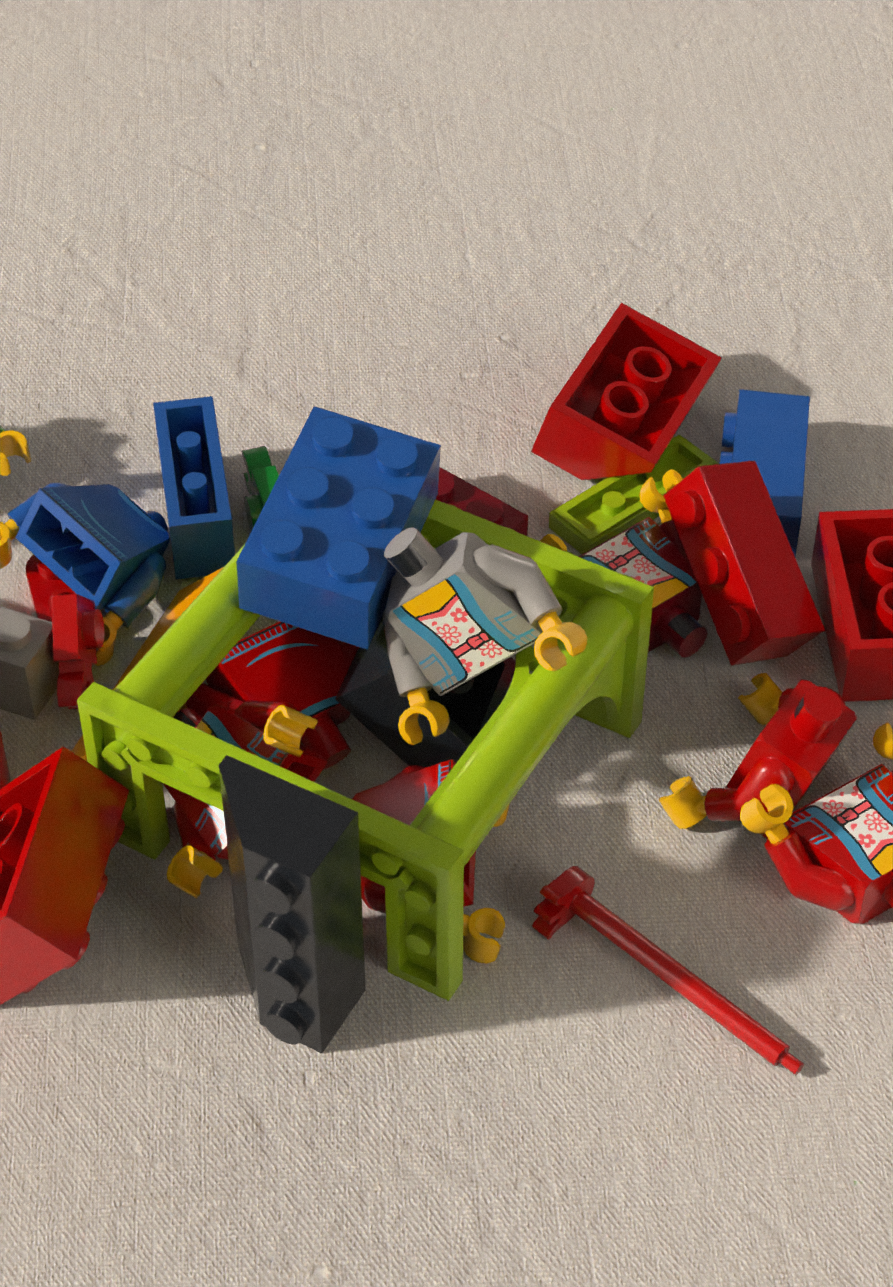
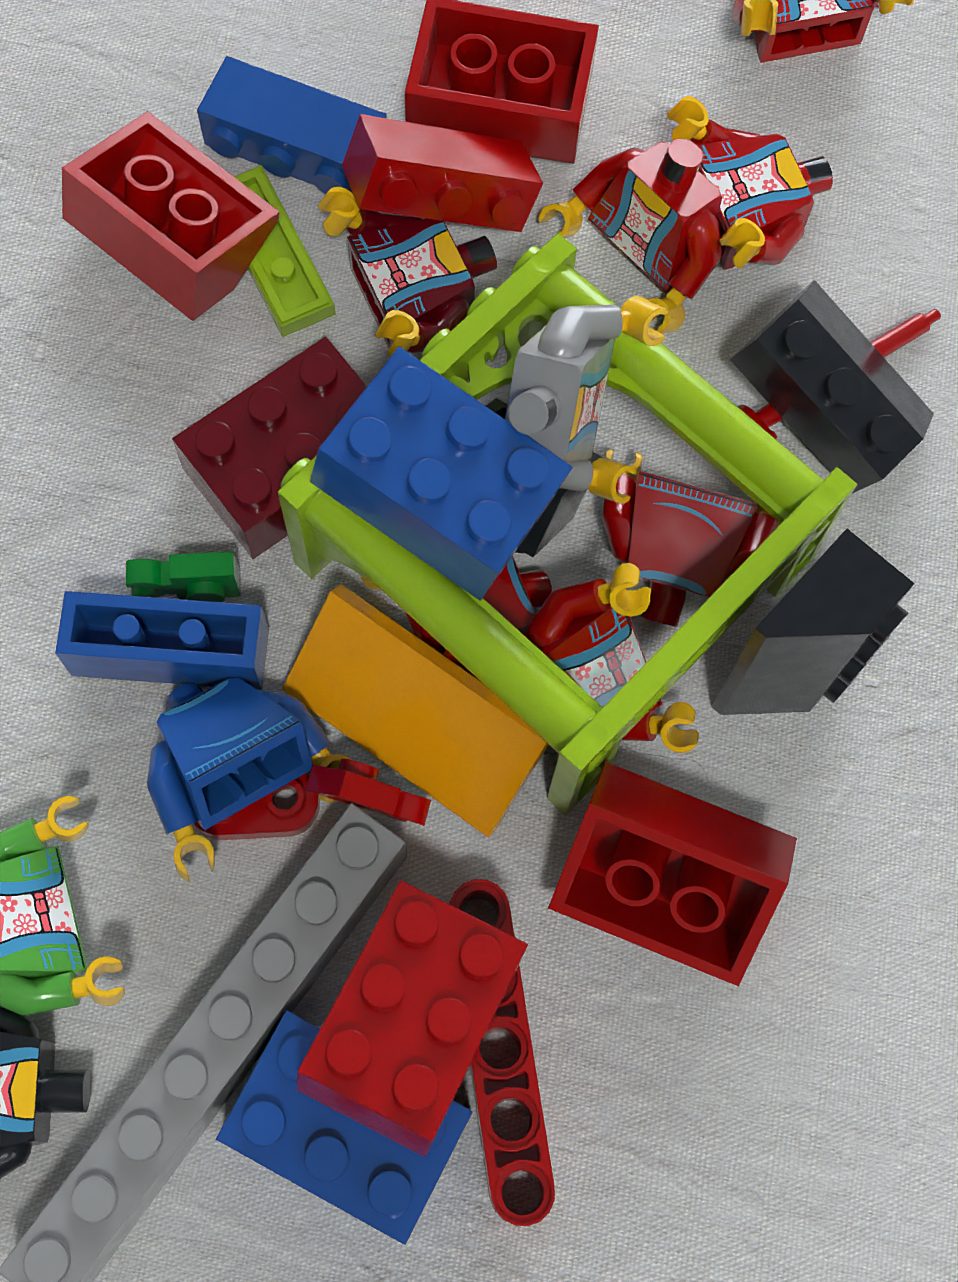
camera: 80 degrees left, 25 degrees up
(644, 950) = (834, 388): none -> black slope

